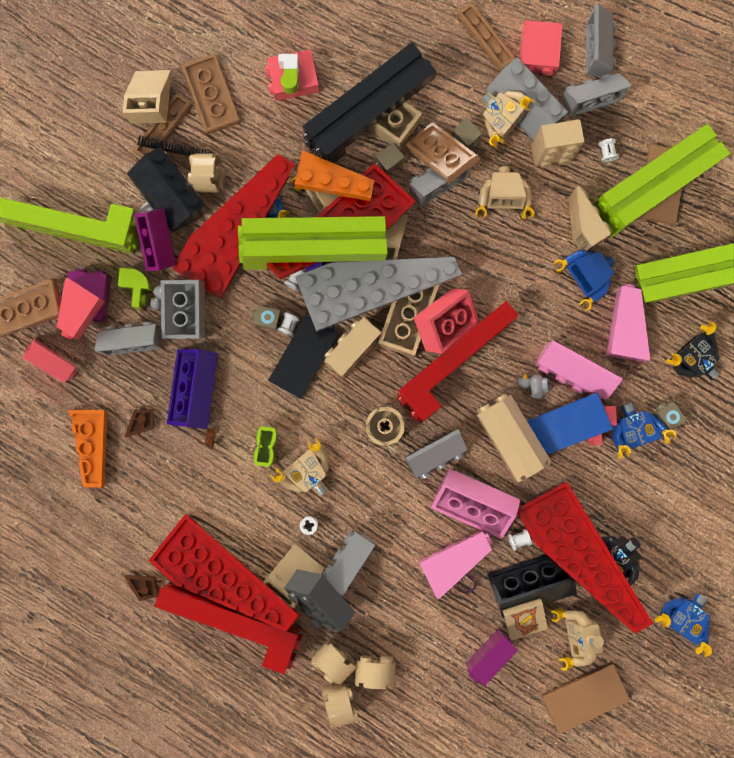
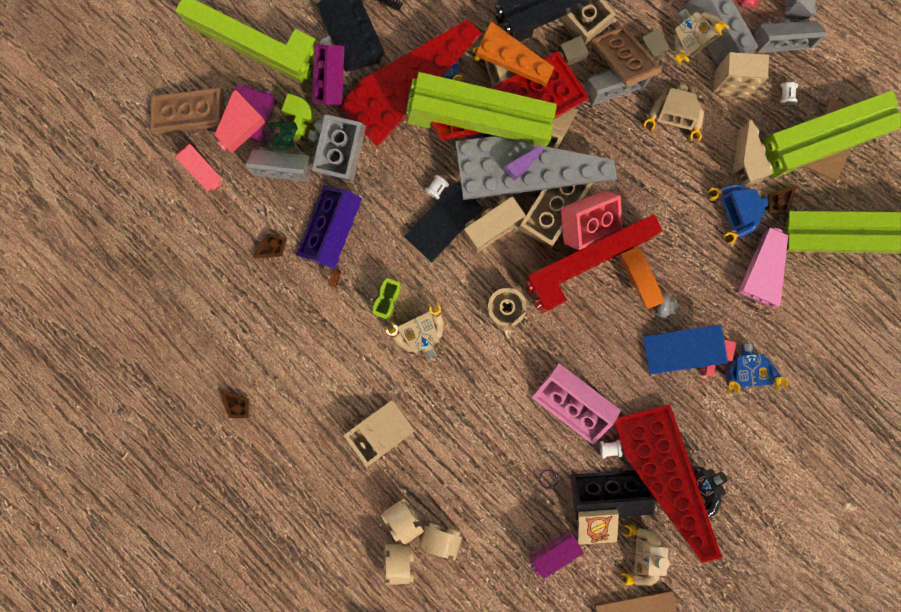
camera: 10 degrees right, 0 degrees up
(91, 437) = (220, 249): orange wing -> none
(122, 311) = (280, 135): none -> clear green brick
(202, 610) = (356, 485): red brick -> none
(205, 567) = (300, 400): red wing -> none
(206, 173) = (393, 22): tan brick -> none
(266, 318) = (417, 176): dark tan brick -> none
(292, 283) = (450, 148): white bush -> none
(306, 530) = (405, 381): white bush -> none
(319, 600) = (403, 458): dark grey brick -> none
(348, 560) = (439, 429): light grey brick -> none
(363, 286) = (520, 165): none -> medium lavender slope
(437, 454) = (550, 346): light grey slope -> none
(453, 562) = (540, 455): bright pink slope -> none
(509, 365) = (642, 278): none -> orange slope
(513, 437) = (628, 348): tan brick -> none
(576, 371) = (706, 299): bright pink slope -> none
(626, 256) = (781, 201): none -> reddish brown piece
(669, 415) = (786, 364): dark tan brick -> none
(688, 621) = (755, 567): blue torso -> none
(697, 355) = (827, 313): black torso -> none

